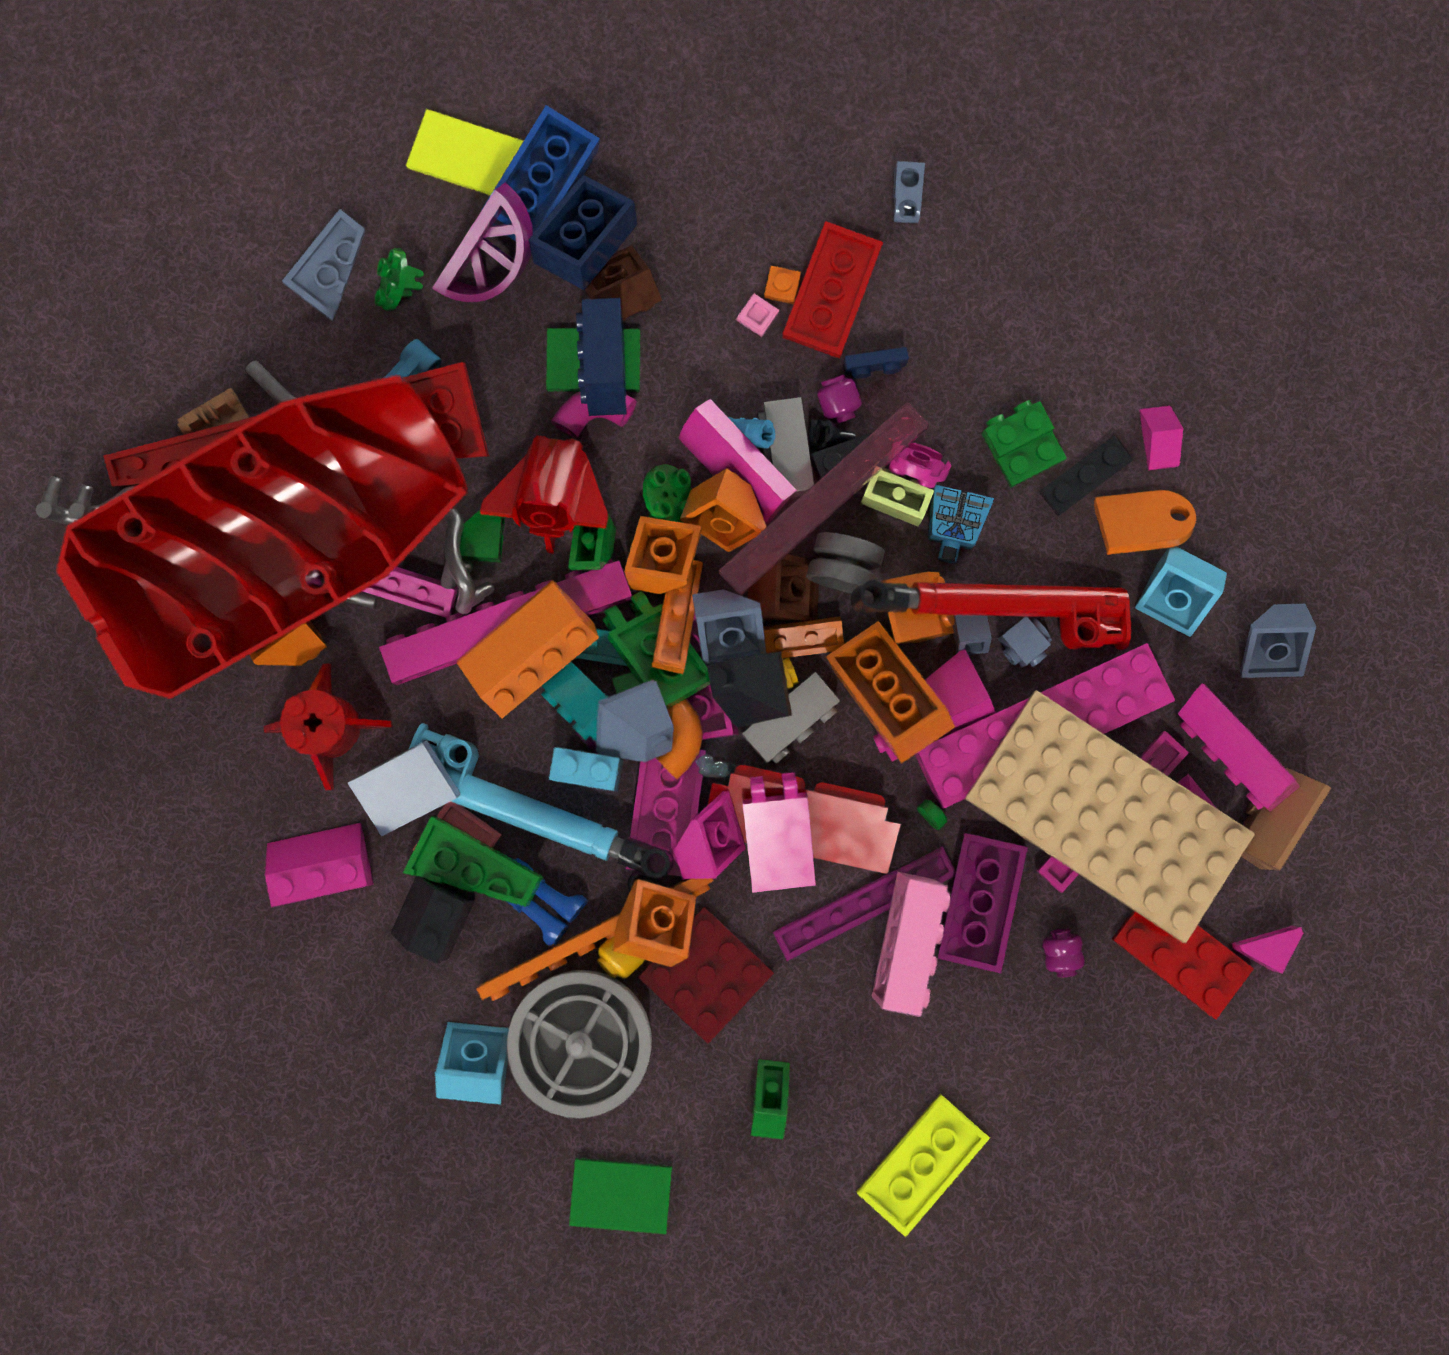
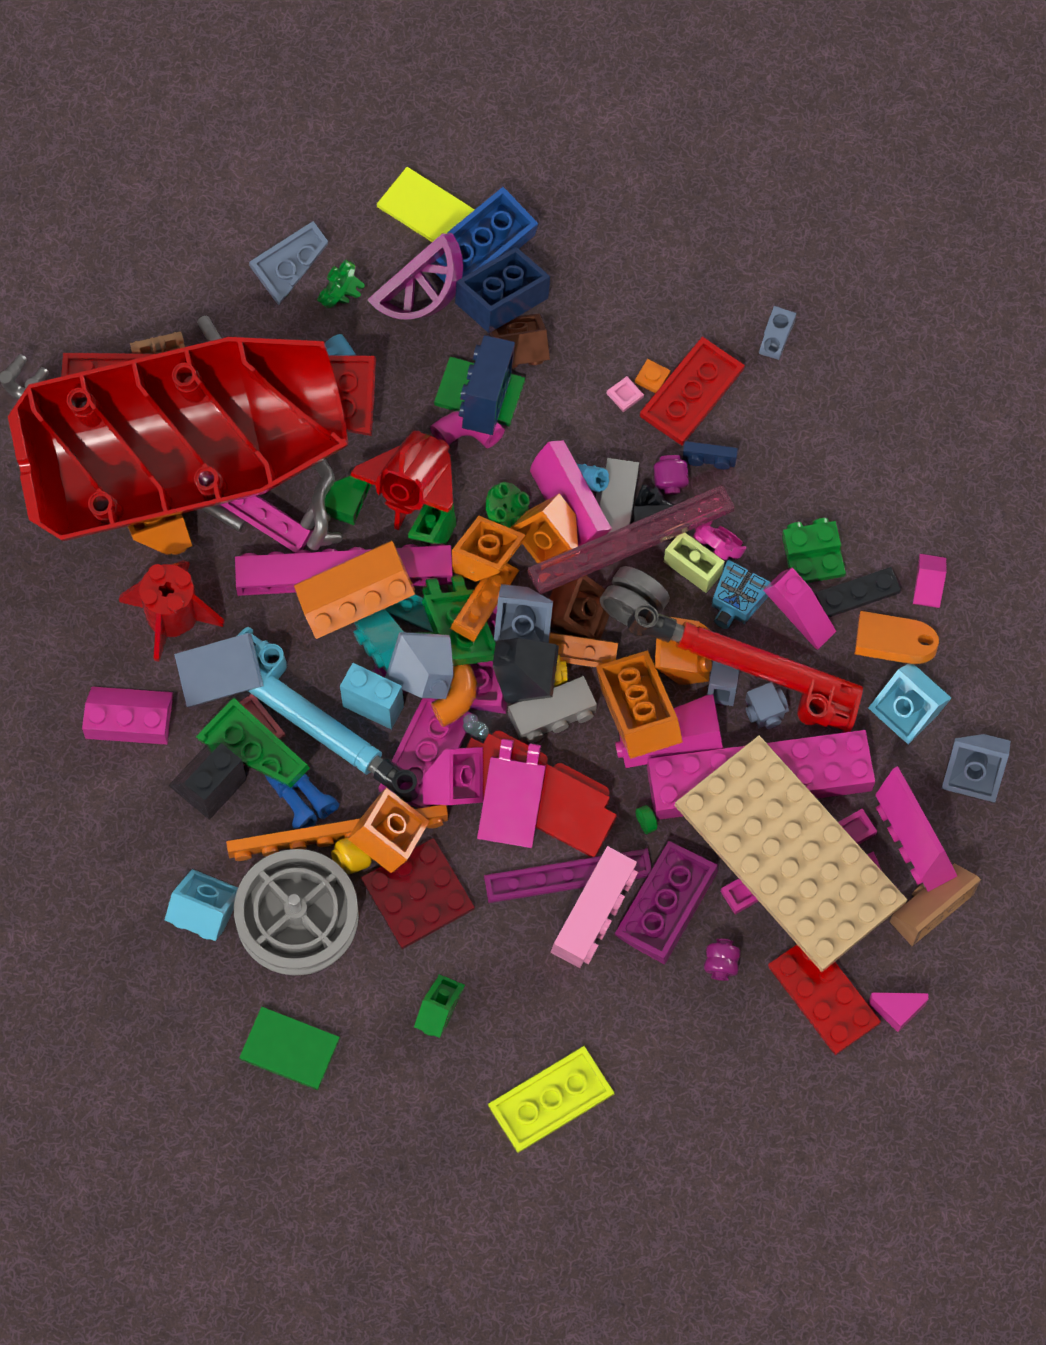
camera: 20 degrees right, 15 degrees down
(1030, 515) = (800, 606): none -> dark pink slope

